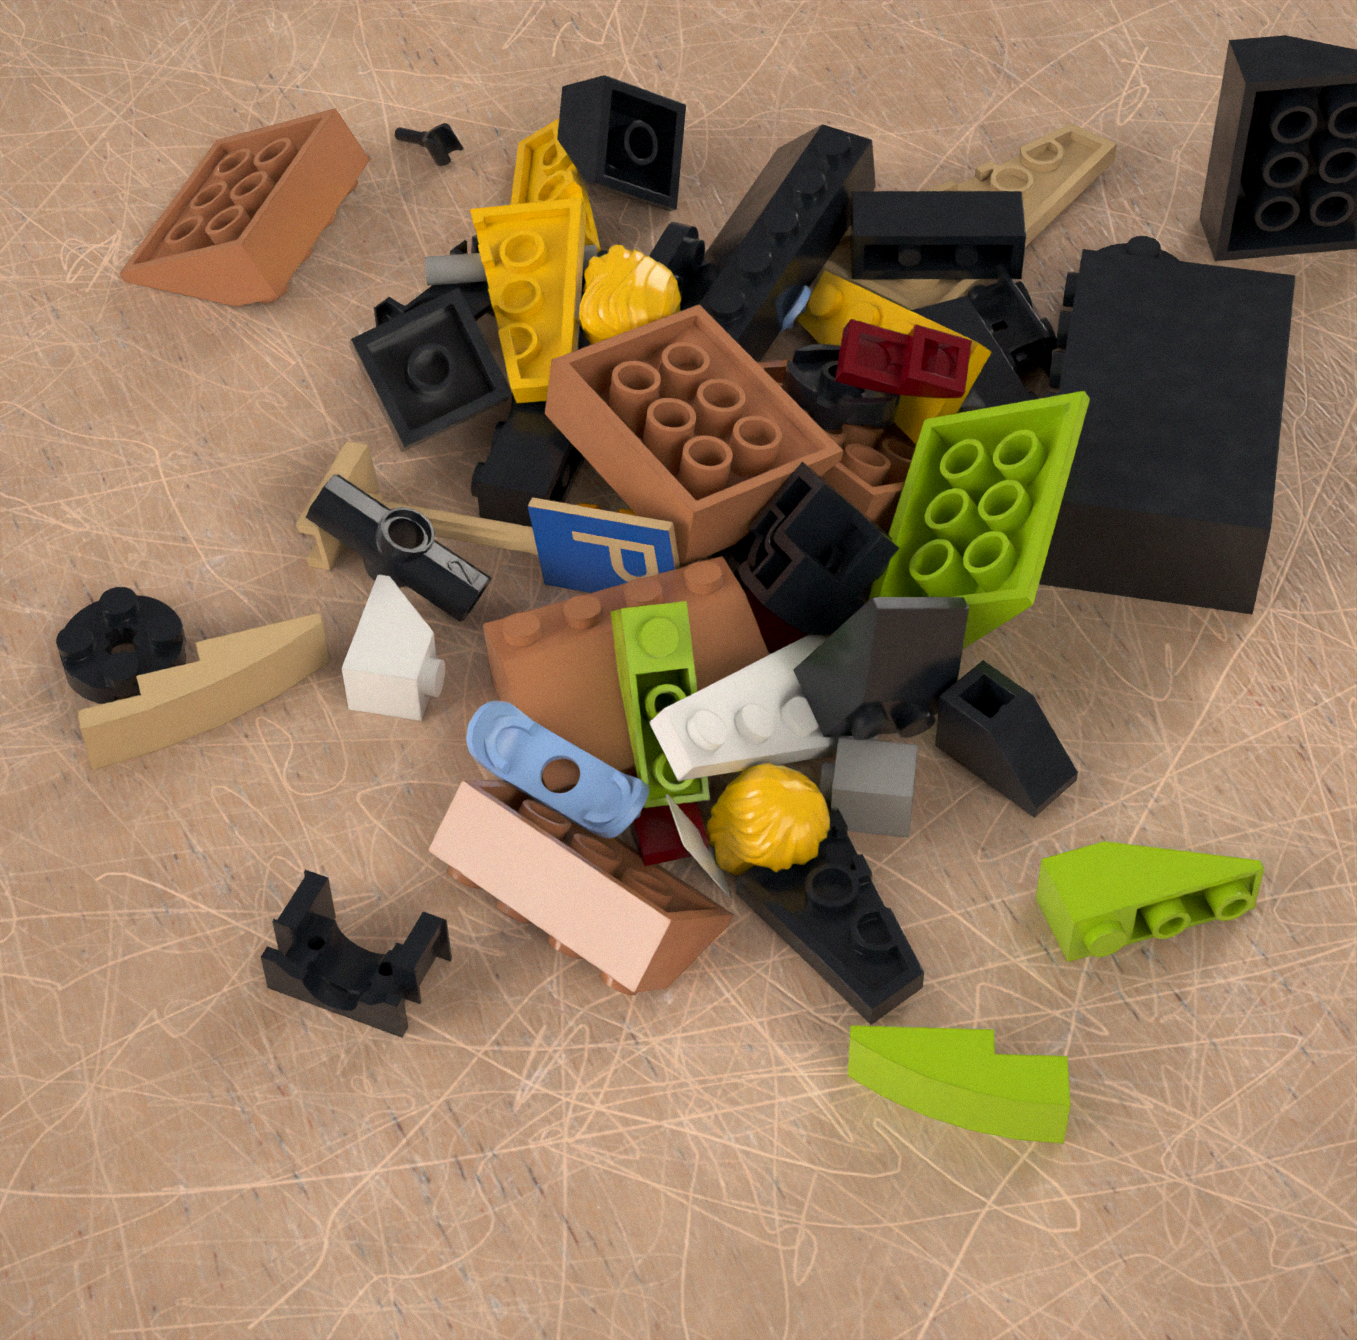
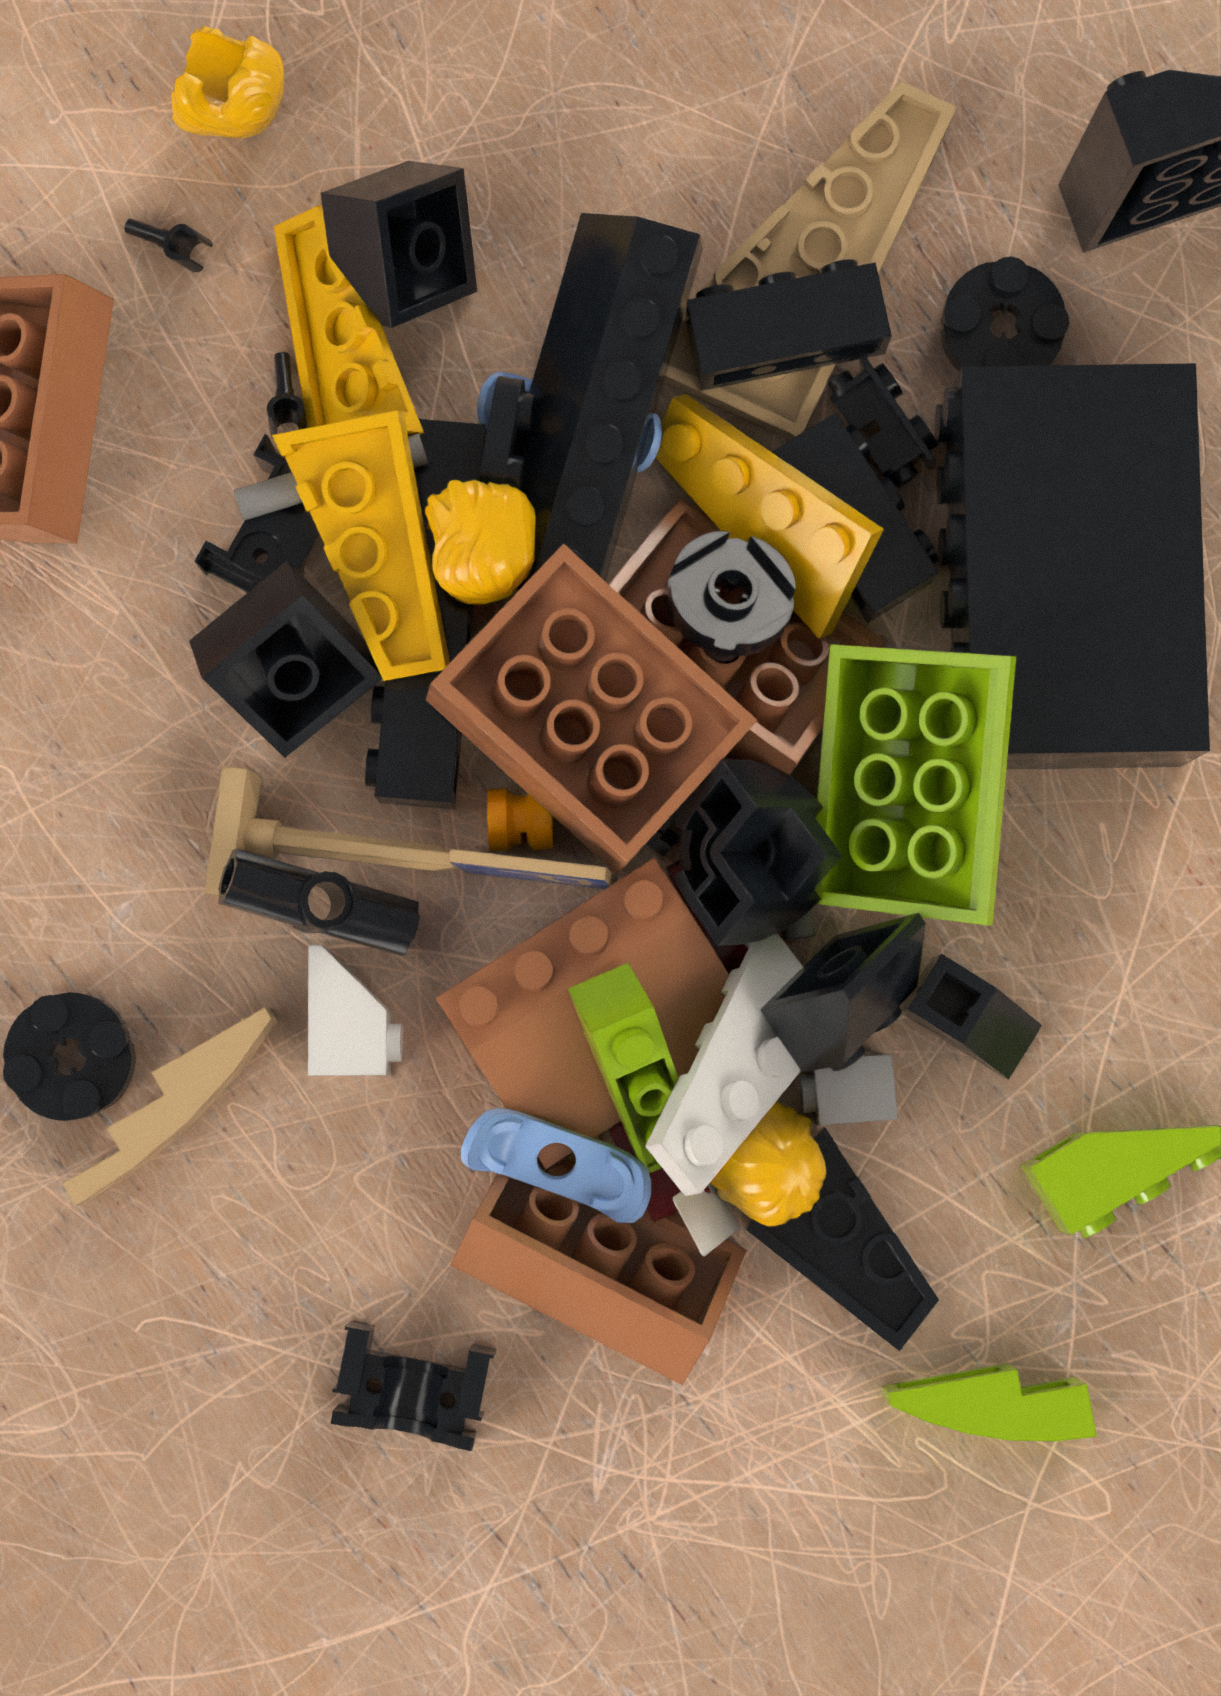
camera: 15 degrees left, 35 degrees up
(508, 54) = (227, 86): none -> yellow hair
(902, 364) = (796, 575): dark red slope -> none

